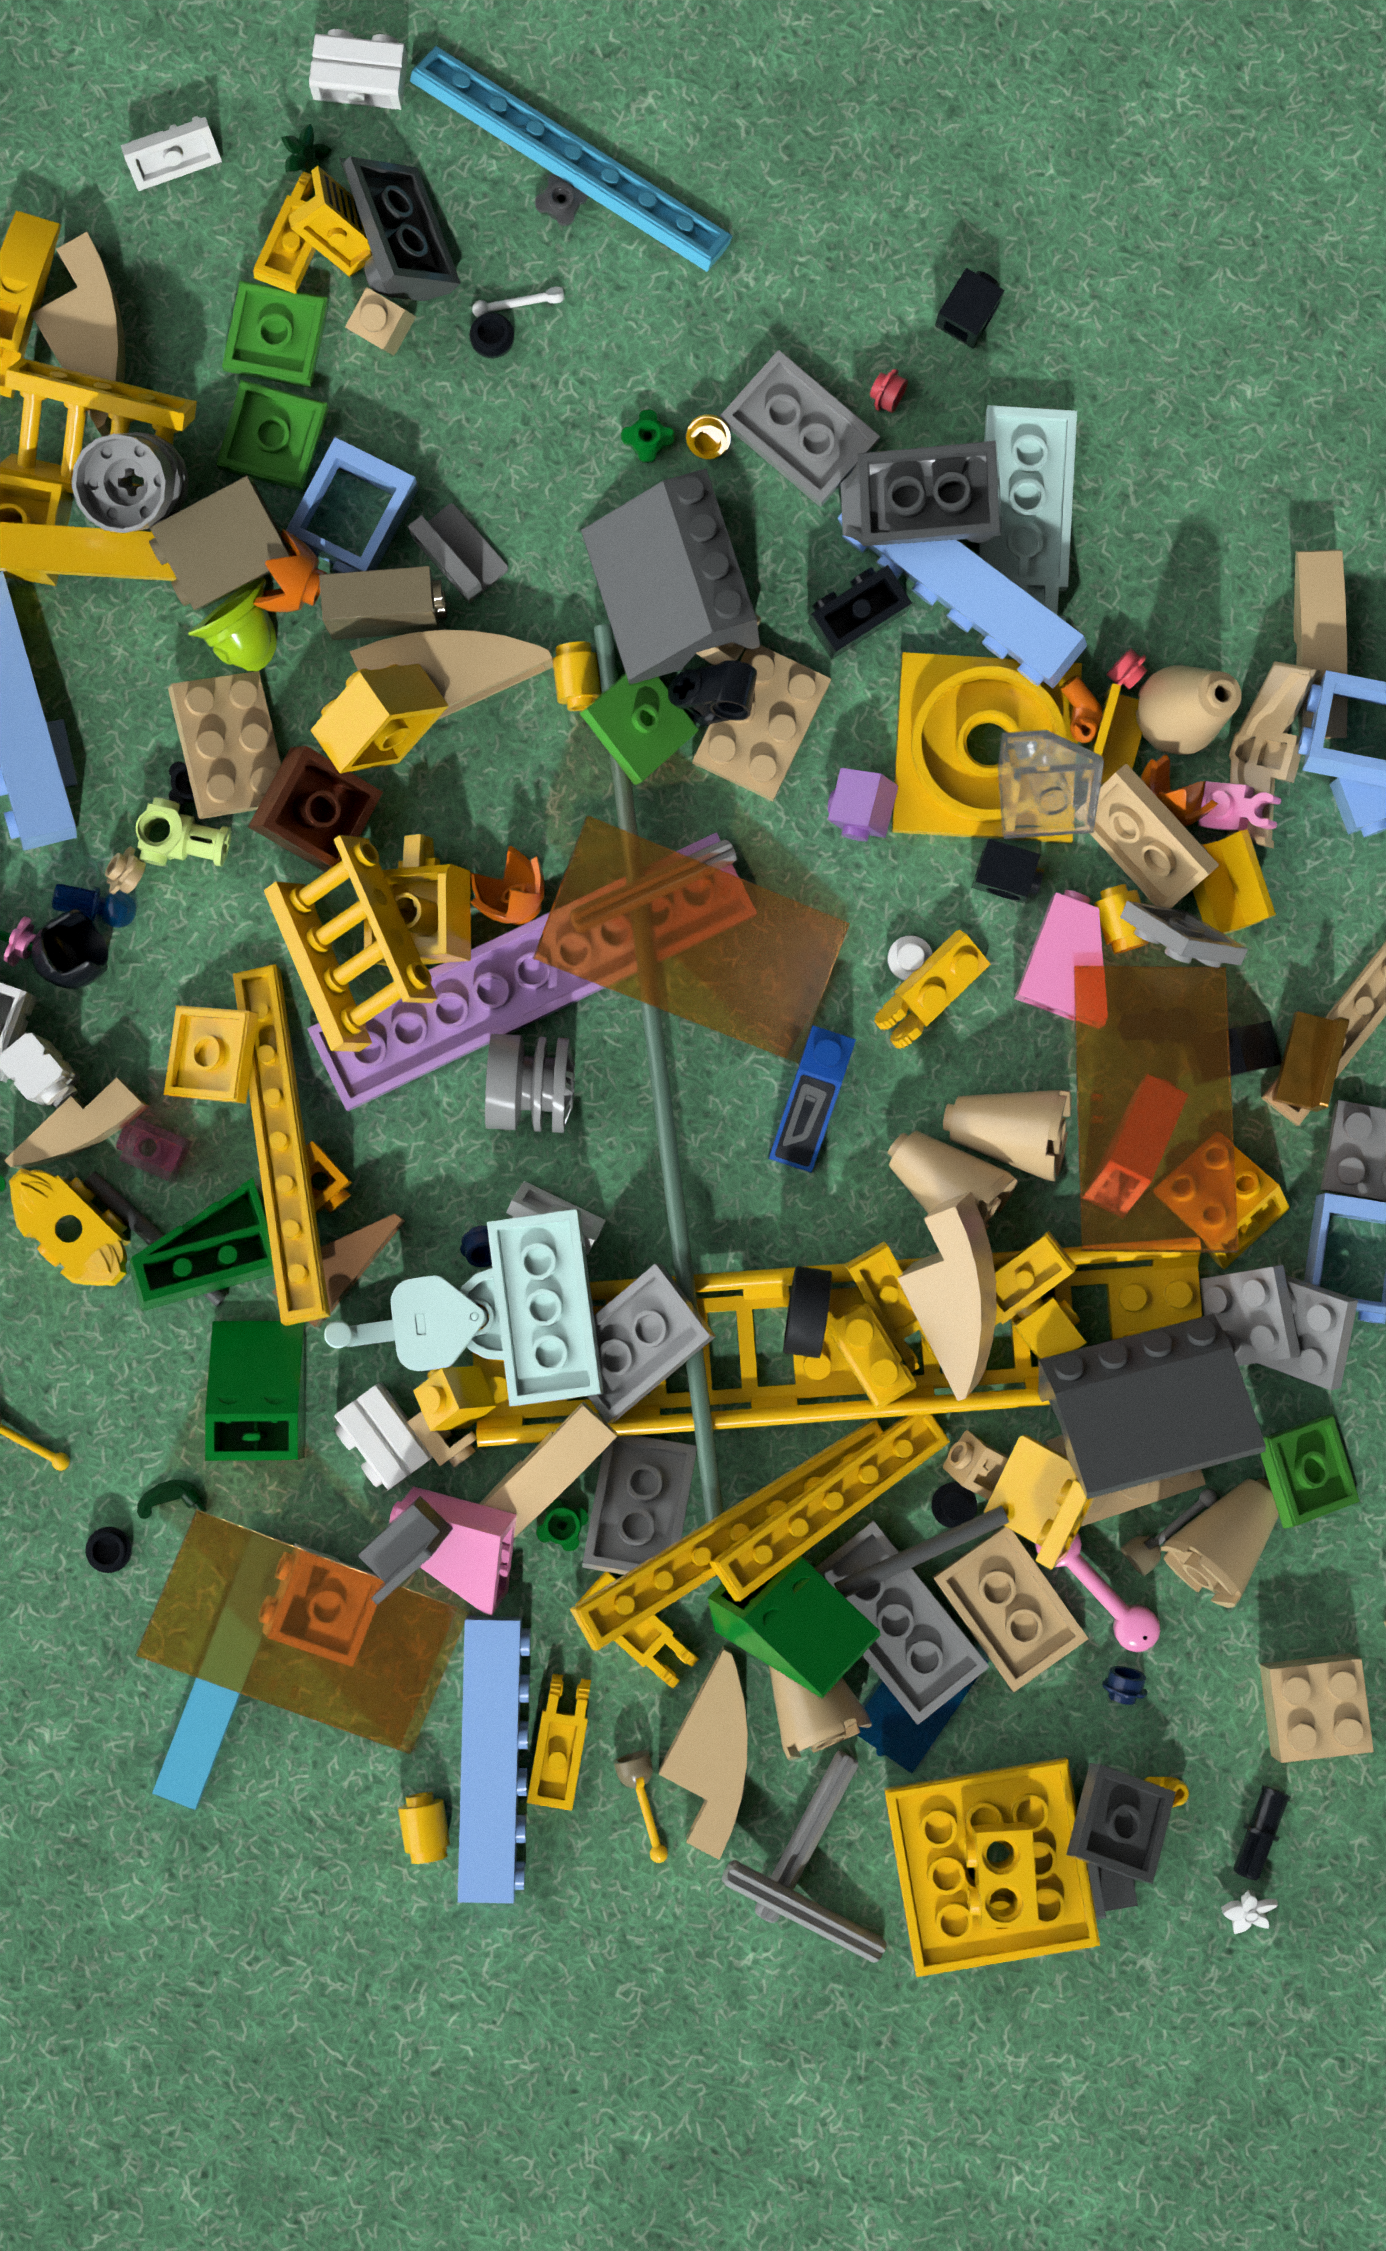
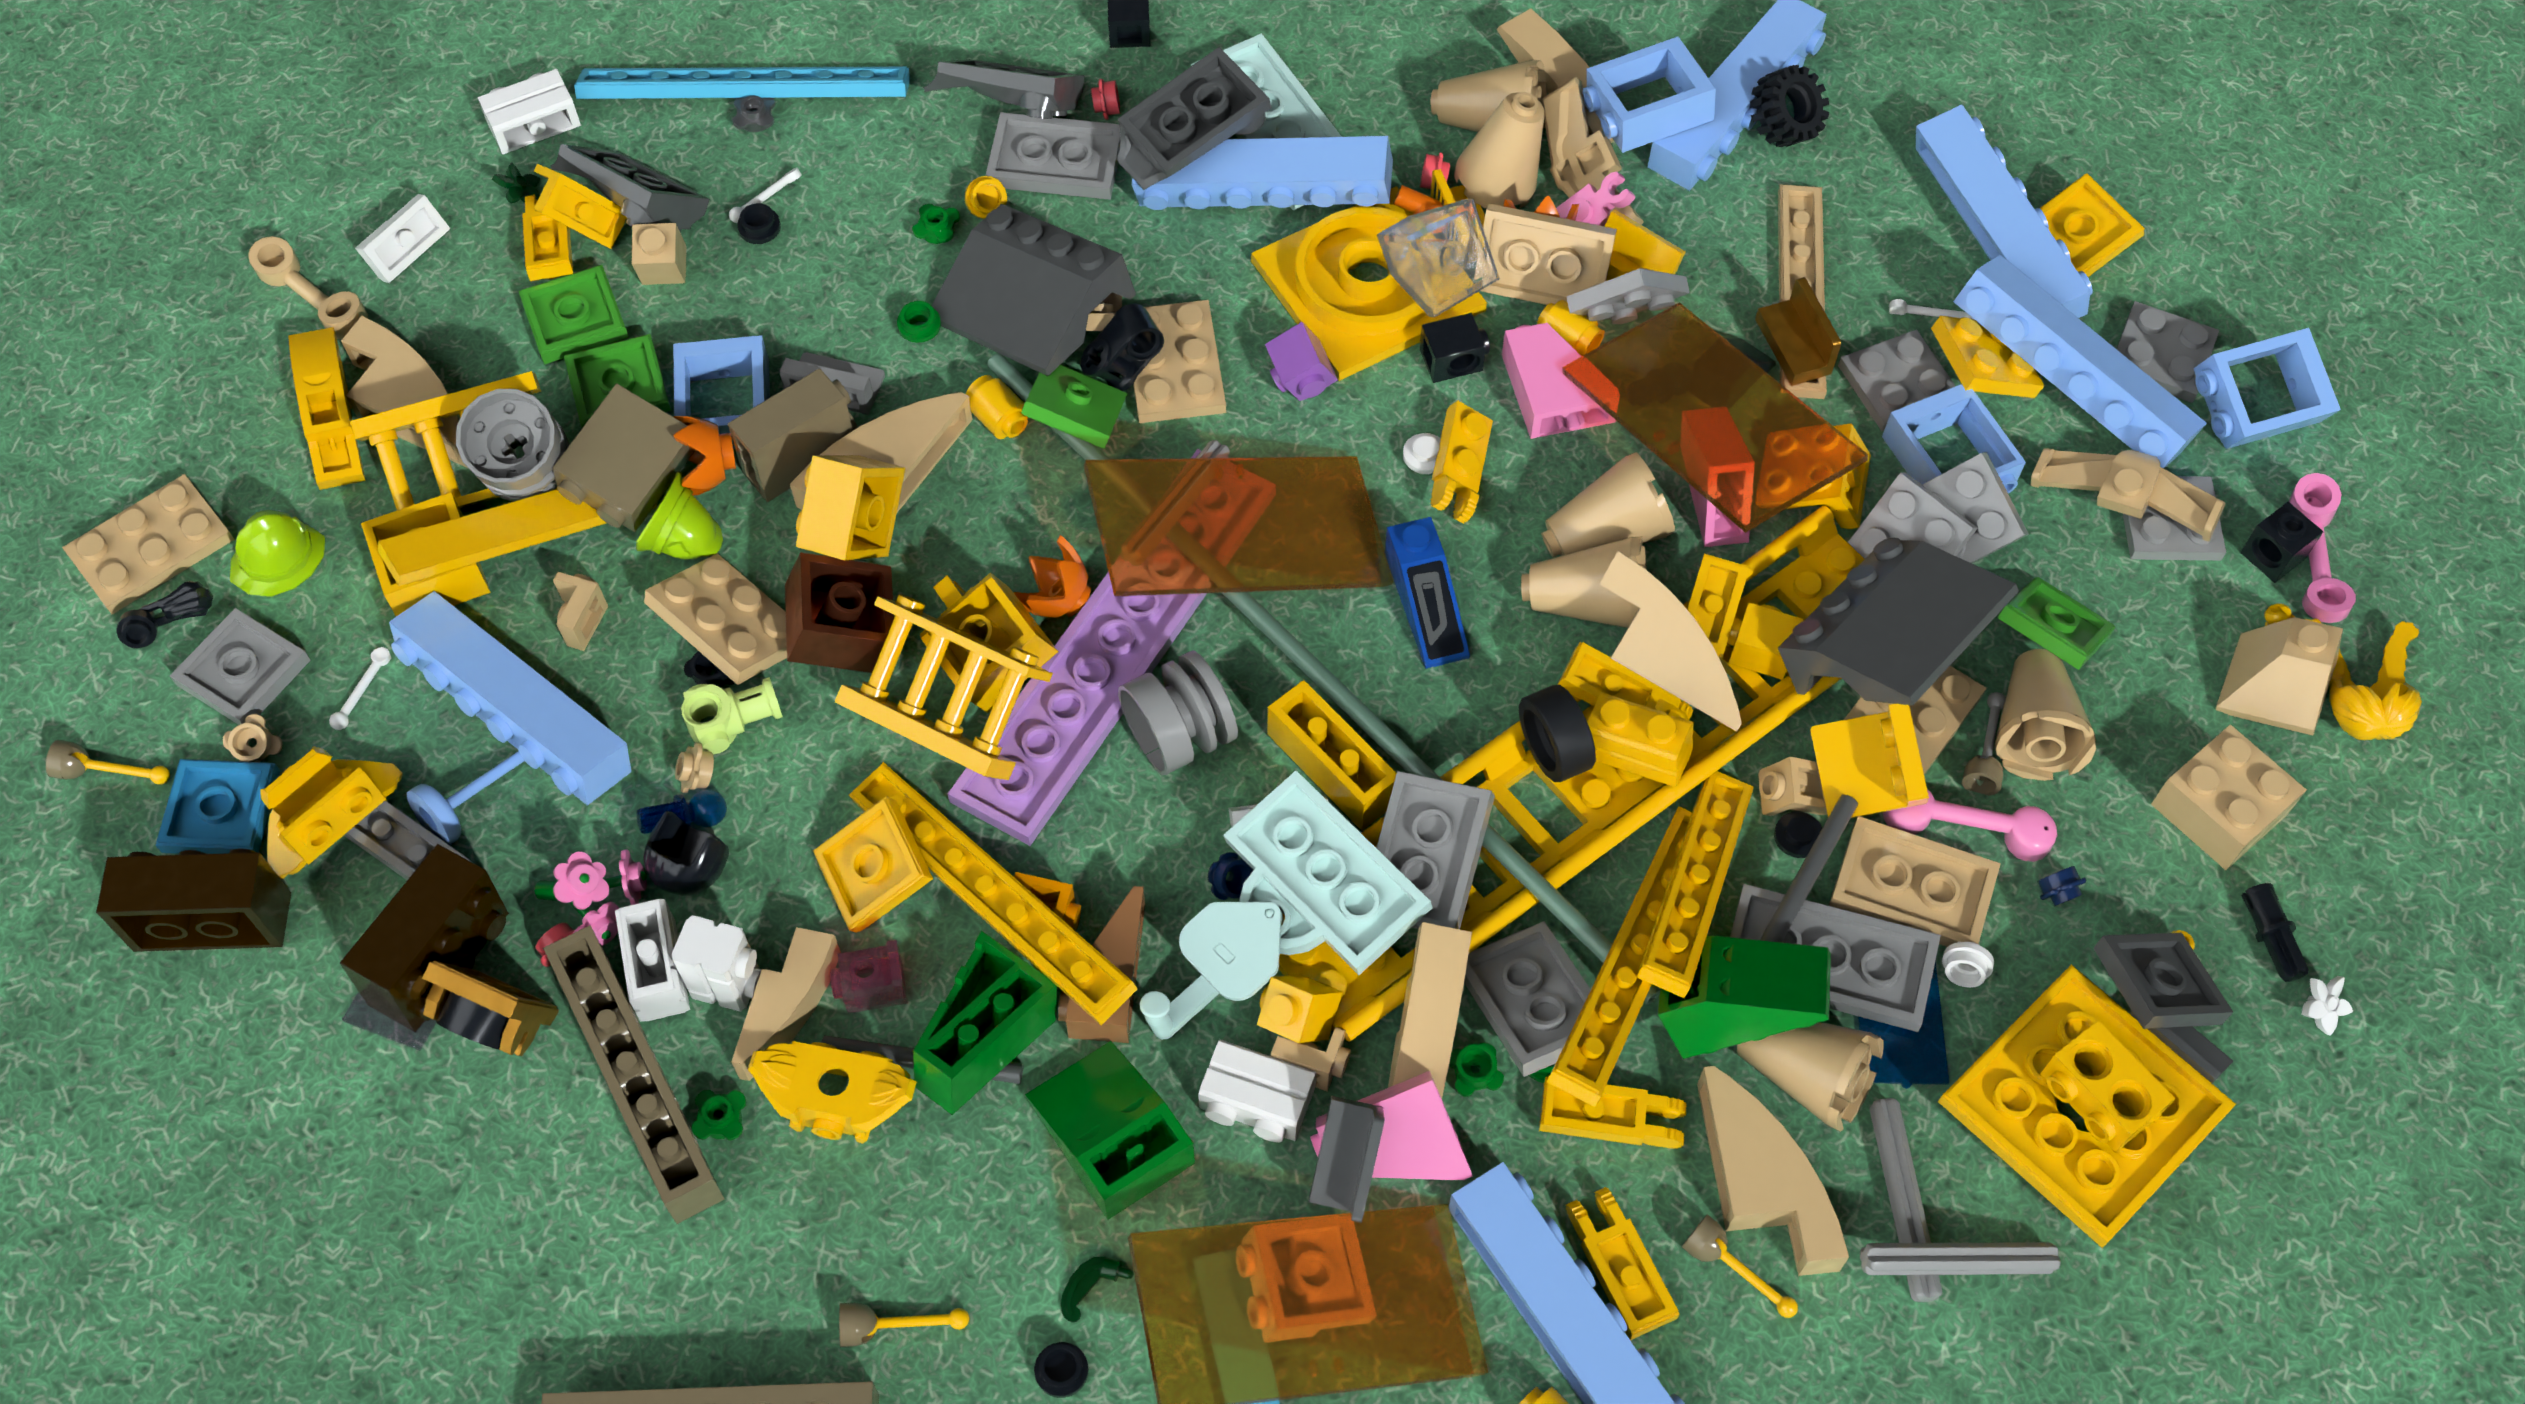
camera: 30 degrees left, 25 degrees down
(52, 113) = (279, 266): none -> tan piece
(113, 663) = (581, 610): none -> tan bracket
(567, 523) = (916, 312): none -> green plate
(628, 1198) = (1331, 754): none -> yellow brick
(809, 326) = (1039, 90): none -> dark grey slope
(858, 612) = (1196, 237): black brick -> none
(997, 1698) = (1967, 964): none -> white plate
(1232, 632) = (1473, 98): none -> tan cone

